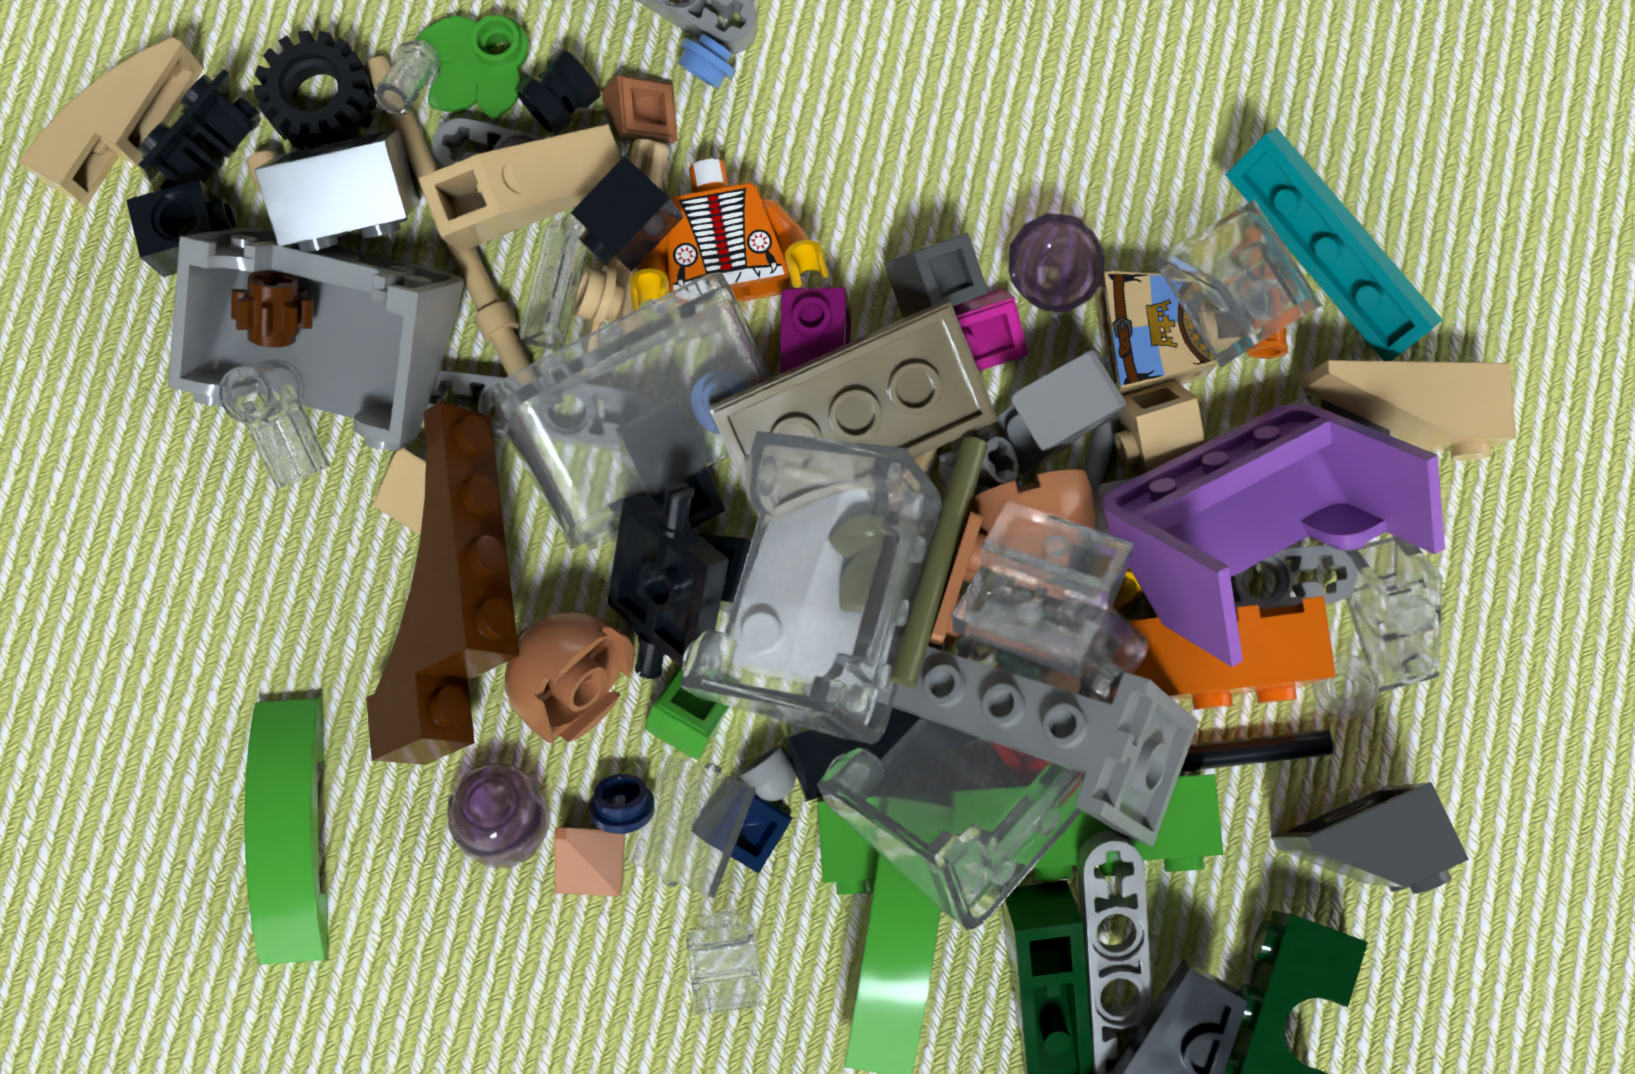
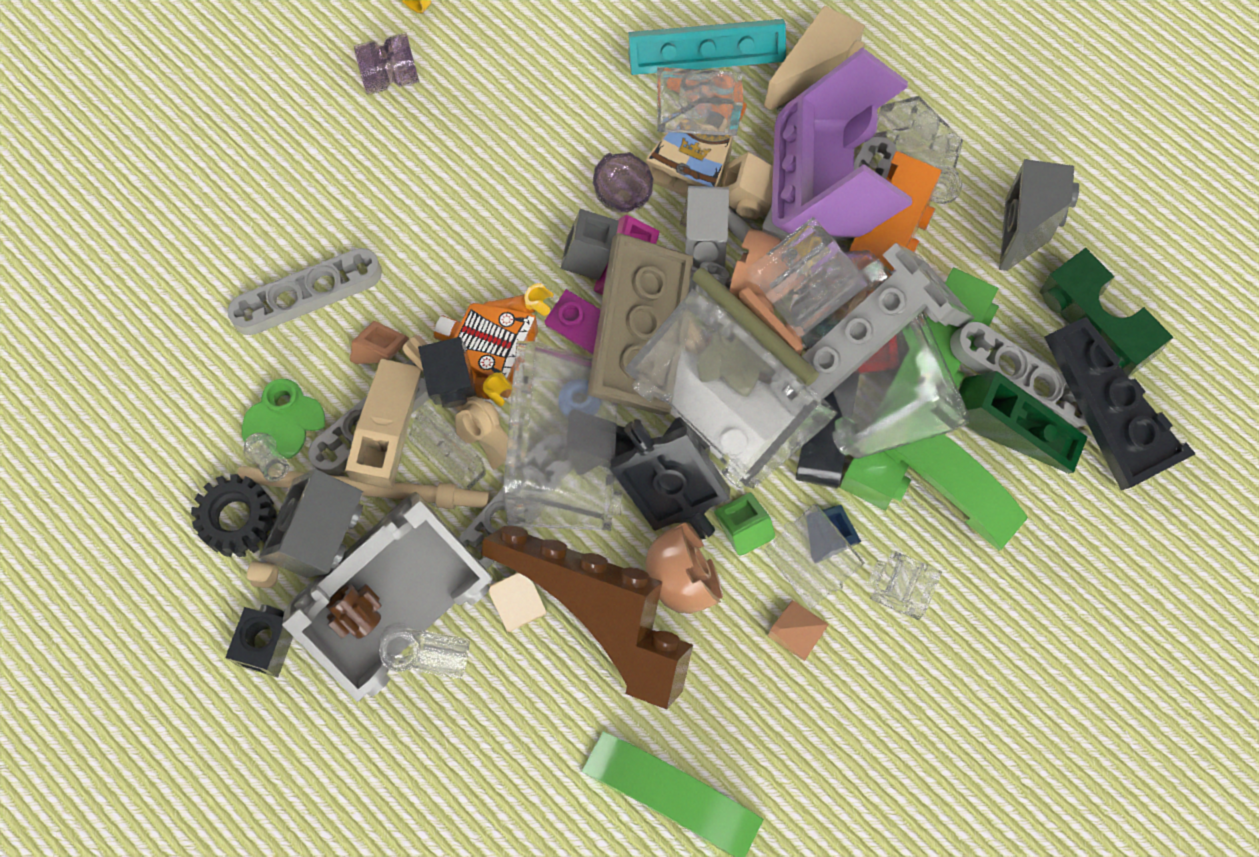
camera: 55 degrees left, 10 degrees down
(111, 119) = (163, 646): tan slope -> none
(204, 105) = (209, 583): black hinge -> none
(497, 815) = (739, 665): clear purple hair -> none
(558, 91) = (336, 380): black wheel -> none
(621, 804) = (777, 589): dark blue plate -> none
(706, 60) = (377, 291): medium blue plate -> none
(771, 774) = (808, 494): light grey hinge -> none
(1258, 750) = (951, 241): black bar -> none

